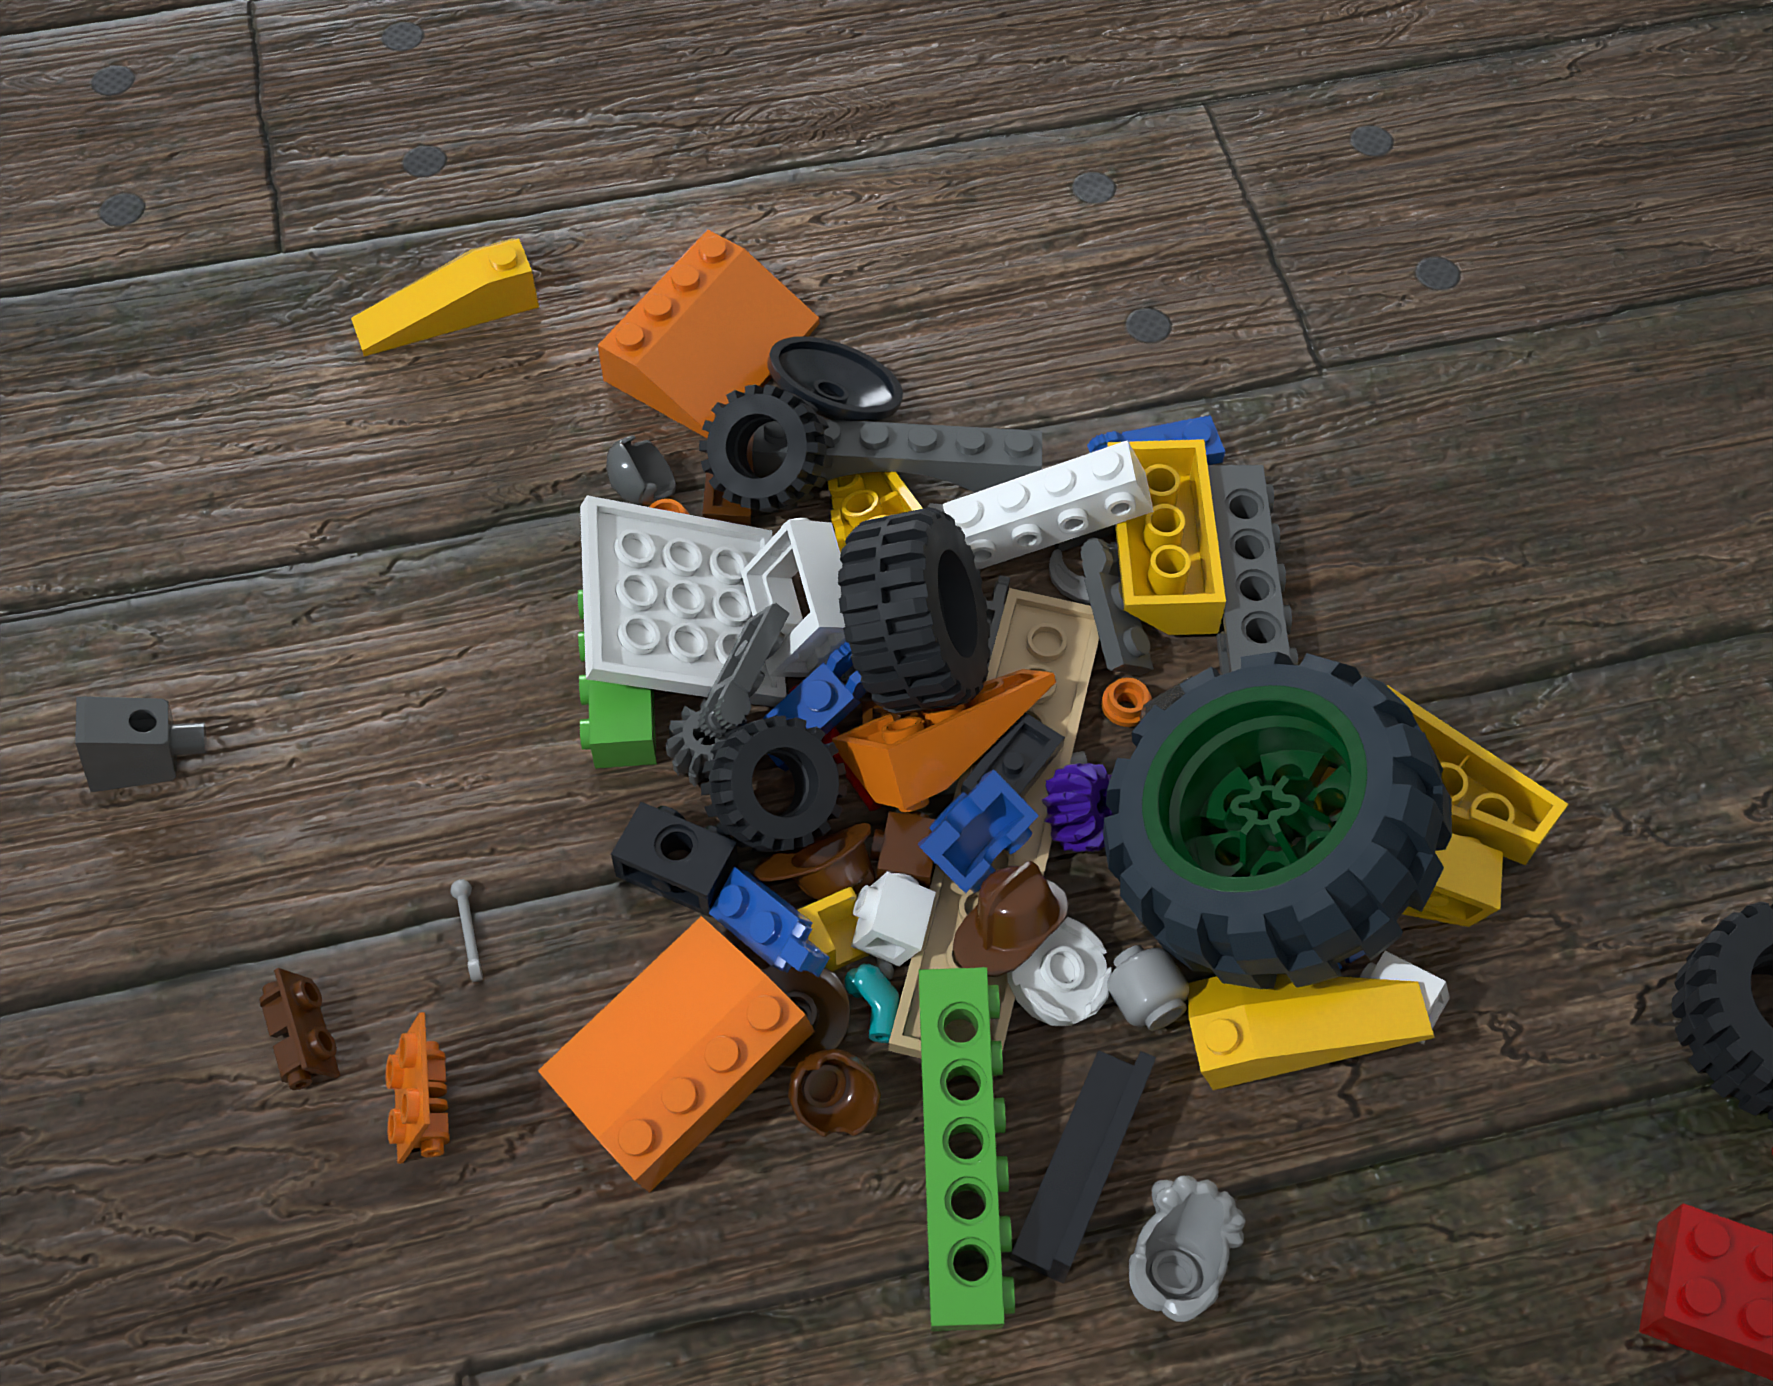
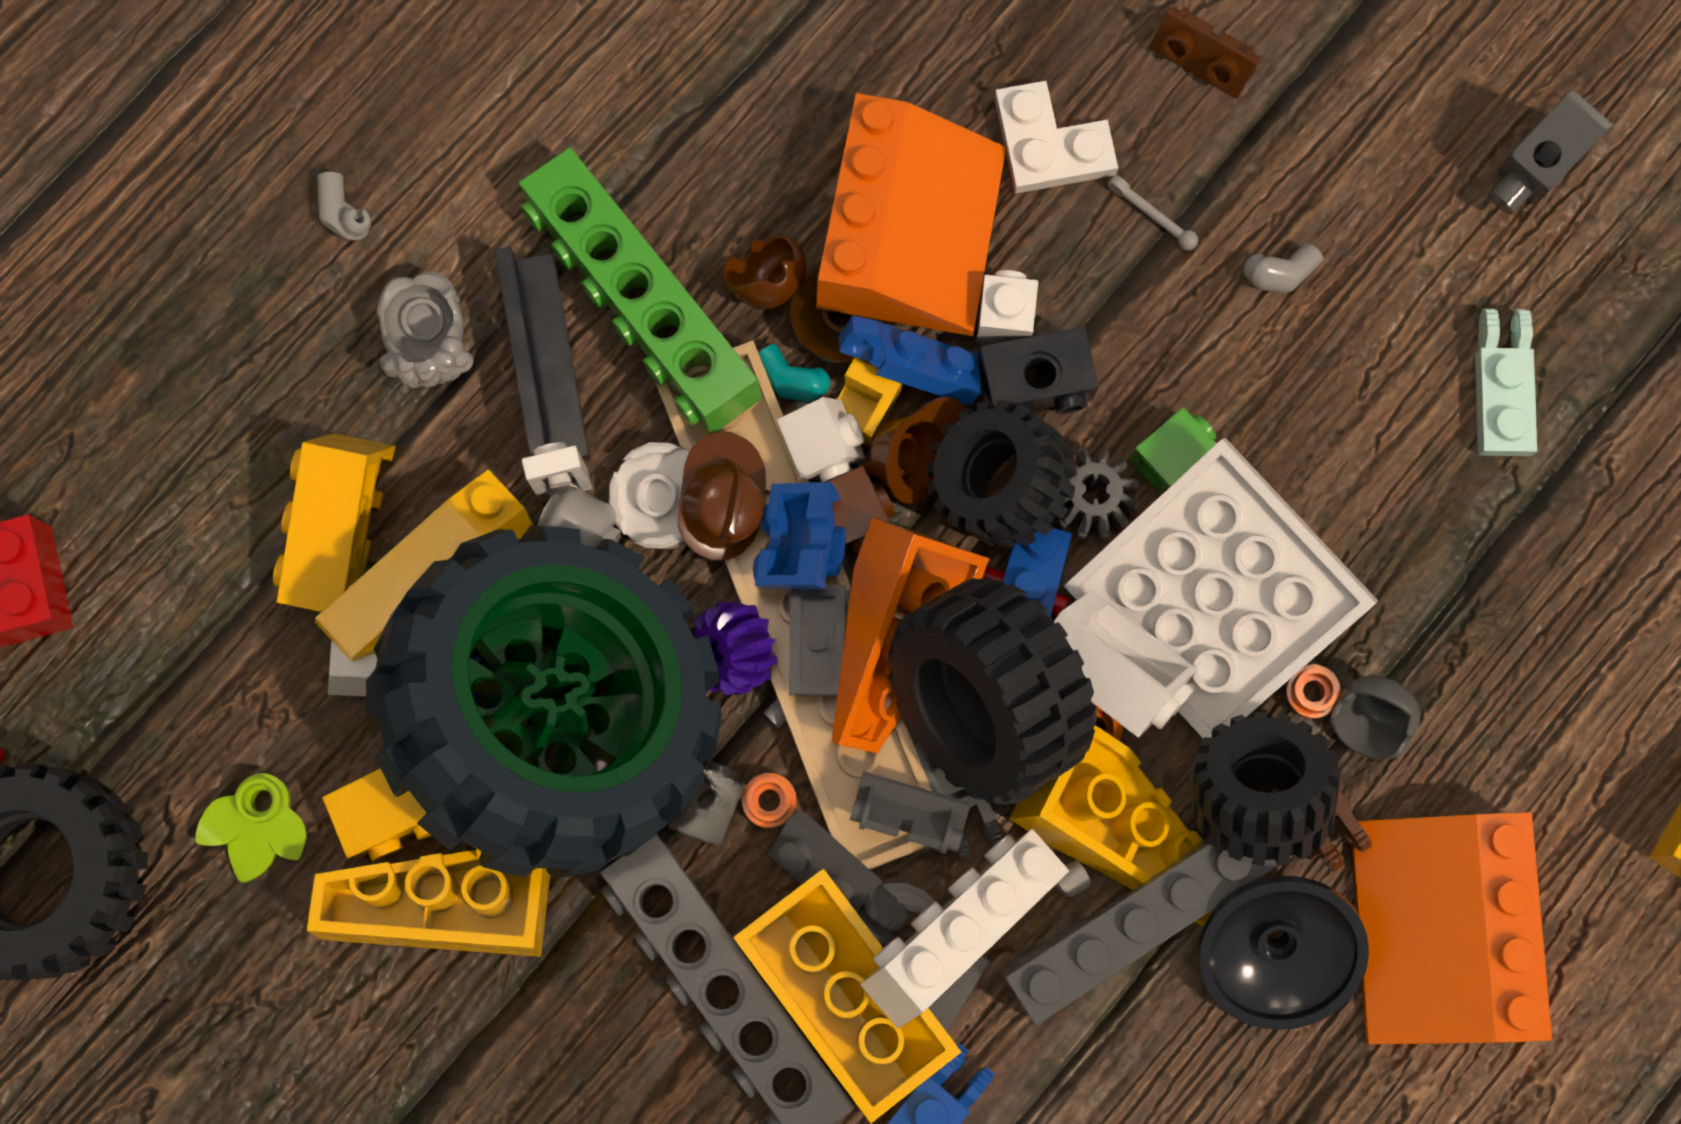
camera: 145 degrees right, 20 degrees up
(333, 624) = (1505, 387): none -> light aqua hinge
(411, 806) = (1282, 274): none -> light grey arm
(418, 1078) = (1059, 36): orange hinge -> none
(511, 1047) = (1040, 152): none -> white plate
(655, 917) = (1006, 307): none -> white brick
(742, 672) = (1105, 550): dark grey hinge -> none
(1047, 619) = (896, 806): none -> dark grey hinge
(1140, 1027) = (556, 470): none -> white plate
(1361, 1137) = (328, 519): none -> yellow wedge
(1571, 941) = (251, 834): none -> lime plate

